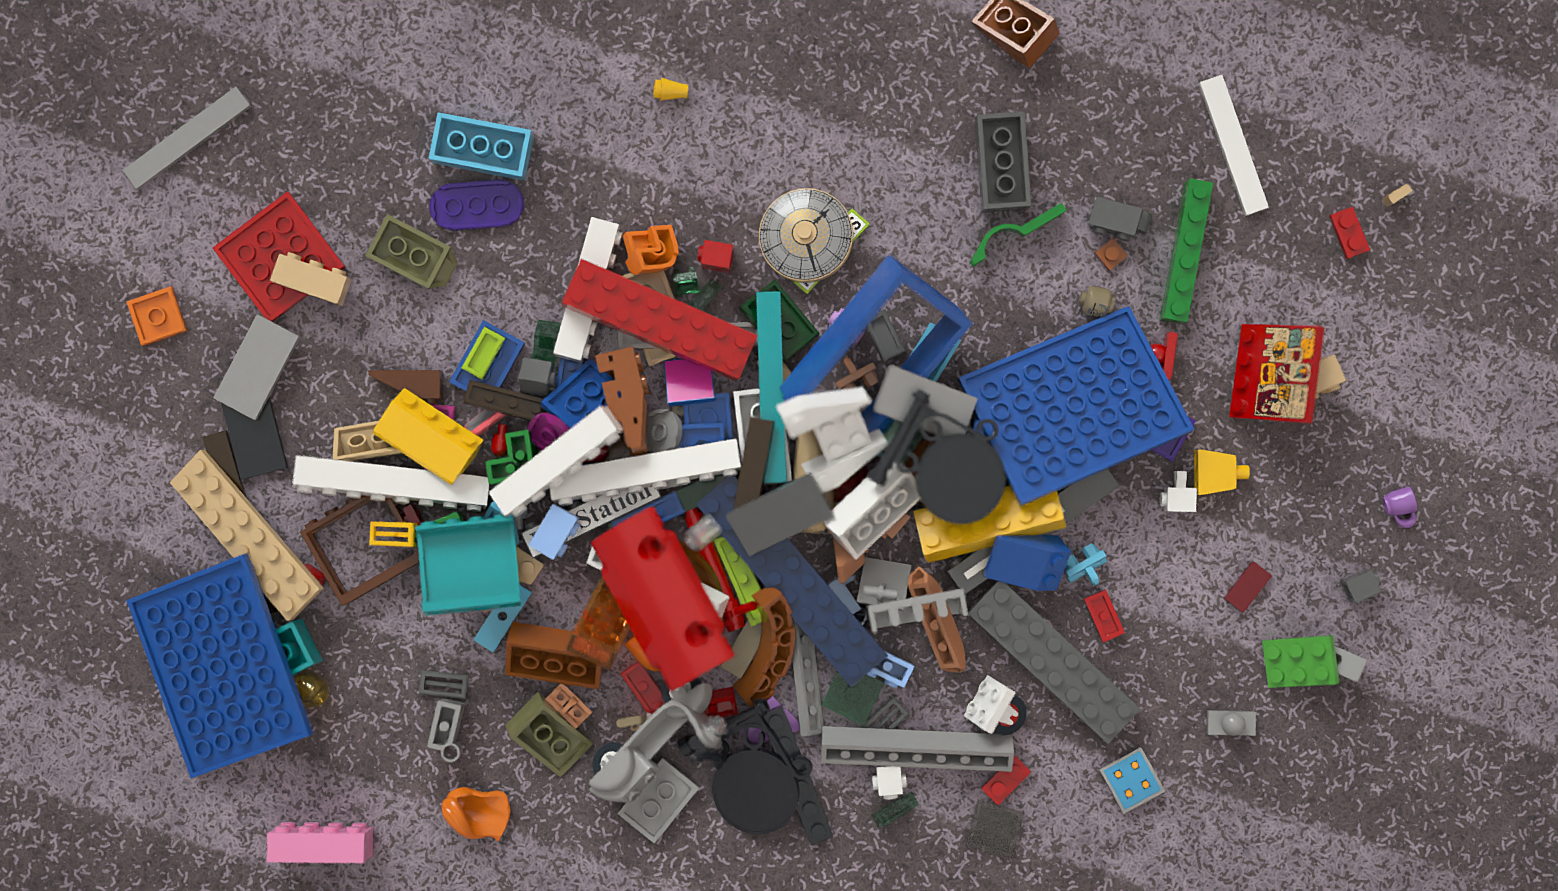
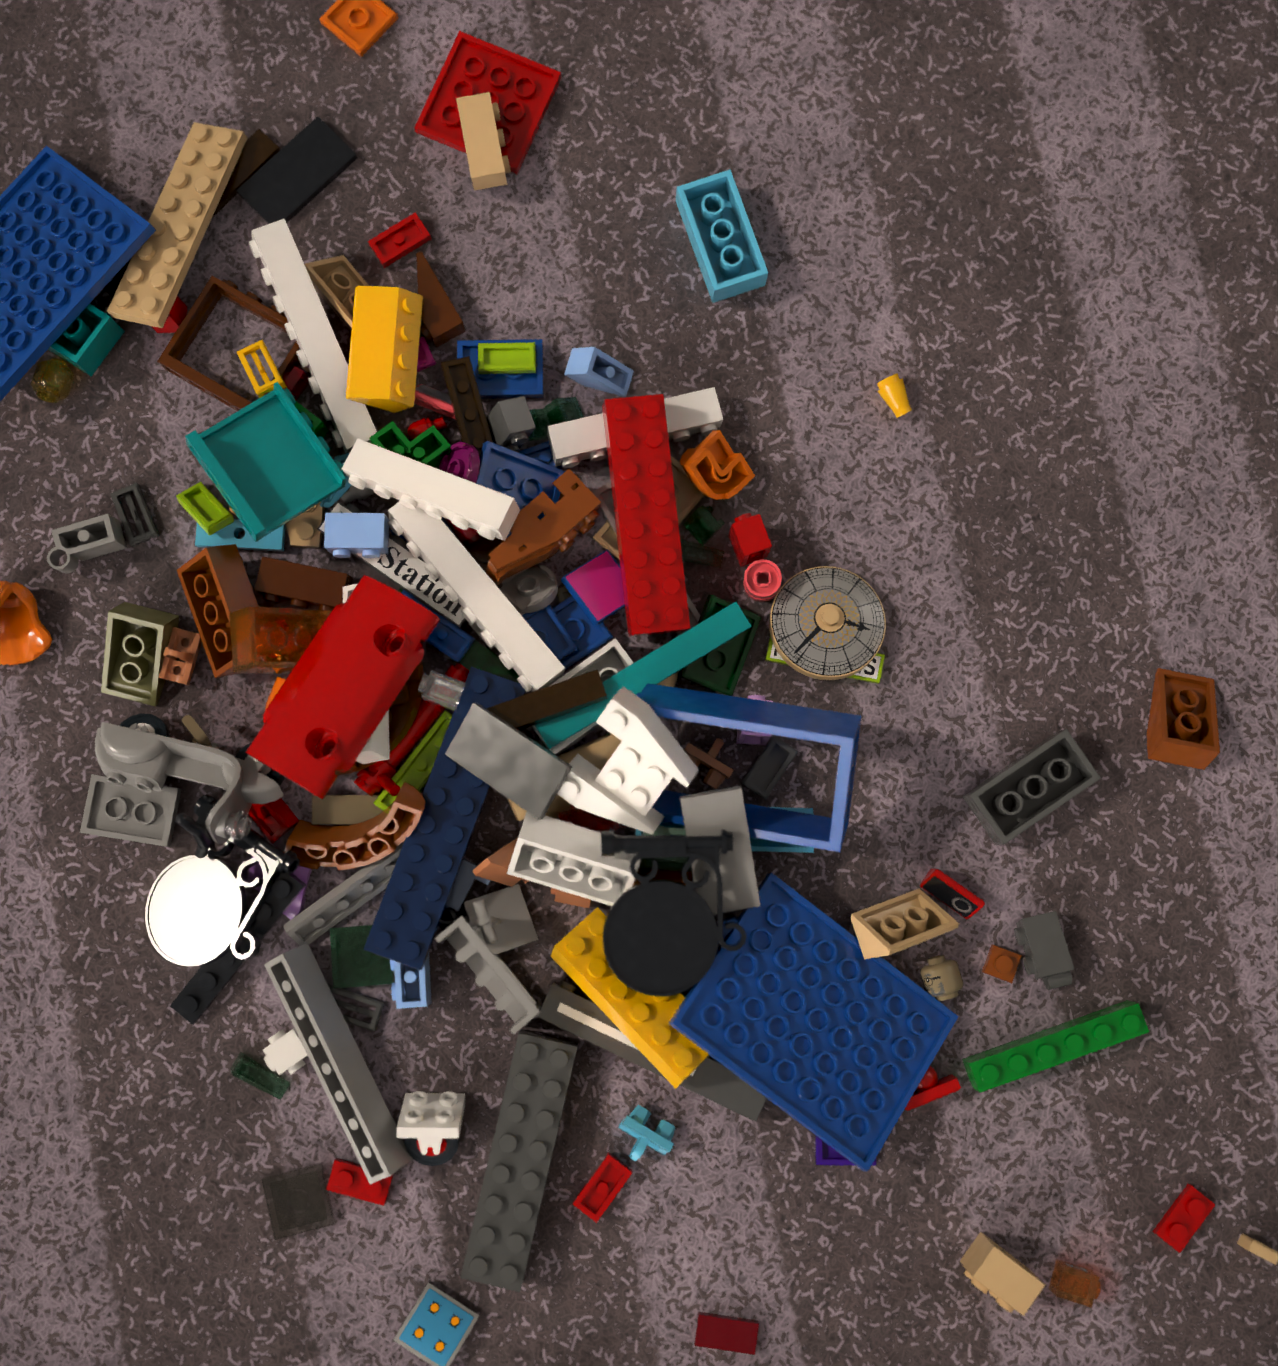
camera: 55 degrees right, 5 degrees down
(256, 367) = (361, 140): light grey tile -> none
(348, 381) = (399, 240): none -> red plate
(412, 253) = (569, 230): olive slope -> none
(470, 630) = (205, 508): none -> lime tile
(476, 205) = (658, 268): dark purple tile -> none
(530, 292) = (598, 371): none -> light blue slope
(566, 591) = (300, 584): none -> reddish brown brick
(643, 687) = (244, 725): red tile -> none
(750, 264) = (762, 580): none -> coral wheel
(940, 630) = (480, 1016): nougat brick -> none
(1022, 231) = (969, 851): green piece -> none
(1028, 561) = (614, 1067): blue slope -> none
(1043, 260) = (951, 893): none -> slope
(1044, 309) = (900, 924): none -> tan slope
(1179, 498) = (781, 1196): white brick -> none
(1216, 472) = (833, 1223): yellow torso -> none
(1233, 145) = (1200, 1031): white tile -> none
(1277, 372) = (985, 1230): plate -> none
(1348, 332) = (1074, 1283): none -> clear orange brick

